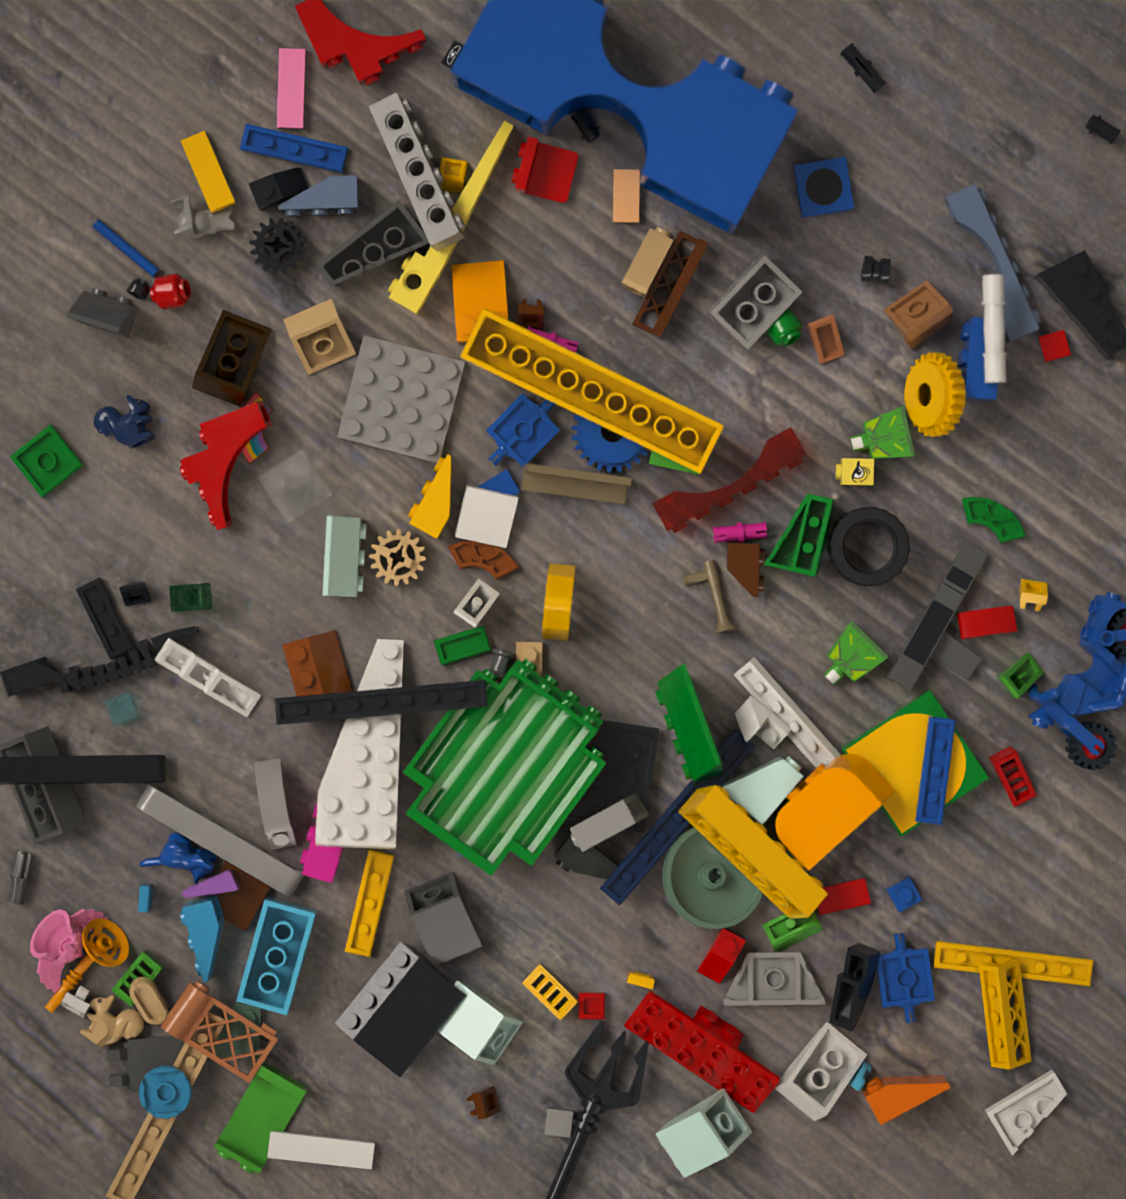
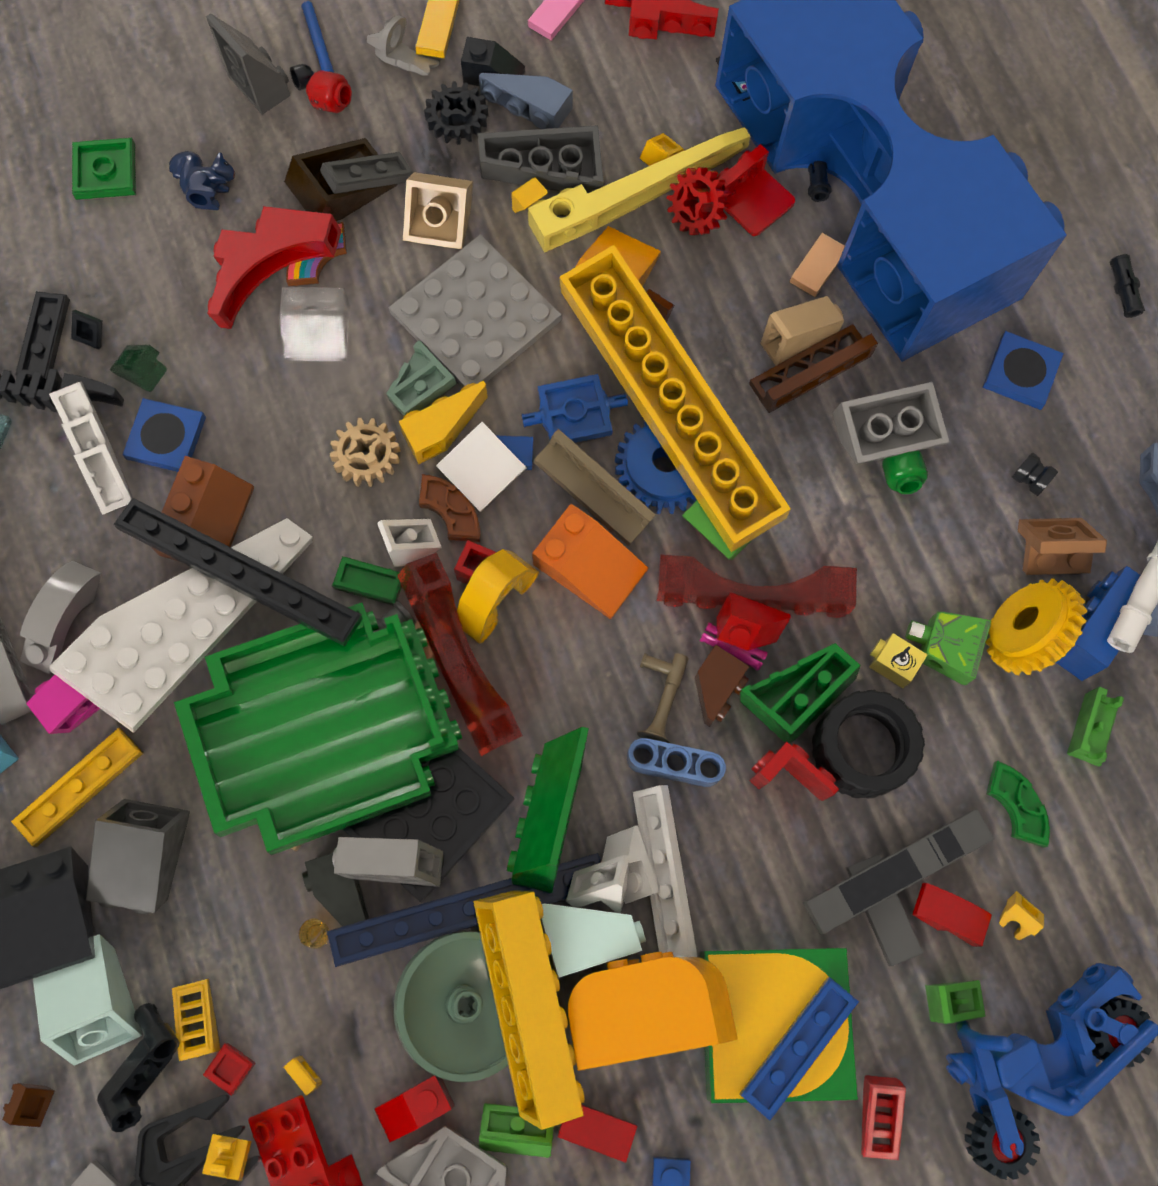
camera: 25 degrees right, 15 degrees down
(247, 634) = (163, 435): none -> blue tile
(250, 343) = (366, 172): none -> dark grey tile
(294, 148) = (529, 46): blue tile -> none
(343, 556) = (308, 412): light aqua slope -> none
(381, 284) = (527, 195): none -> yellow slope
(385, 114) = (632, 120): light grey brick -> none
(398, 479) = (419, 381): none -> sand green wing
(511, 211) = (711, 202): none -> red gear
(532, 590) = (469, 560): none -> red brick
(538, 1059) = (139, 1070): none -> black beam
(583, 894) = (310, 930): none -> clear yellow hinge
(596, 683) = (435, 609): none -> clear red arch
(606, 536) = (589, 561): none -> orange slope
(629, 1053) = (227, 1157): none -> yellow tile
(741, 513) = (749, 623): none -> red slope
(750, 750) = (601, 882): none -> white slope
(759, 628) = (692, 760): none -> medium blue beam
(813, 603) = (796, 762): none -> red bracket
(825, 339) = (943, 505): nougat slope -> none
(853, 655) = (779, 854): bright green torso -> none
(1014, 432) = (1094, 726): none -> bright green hinge

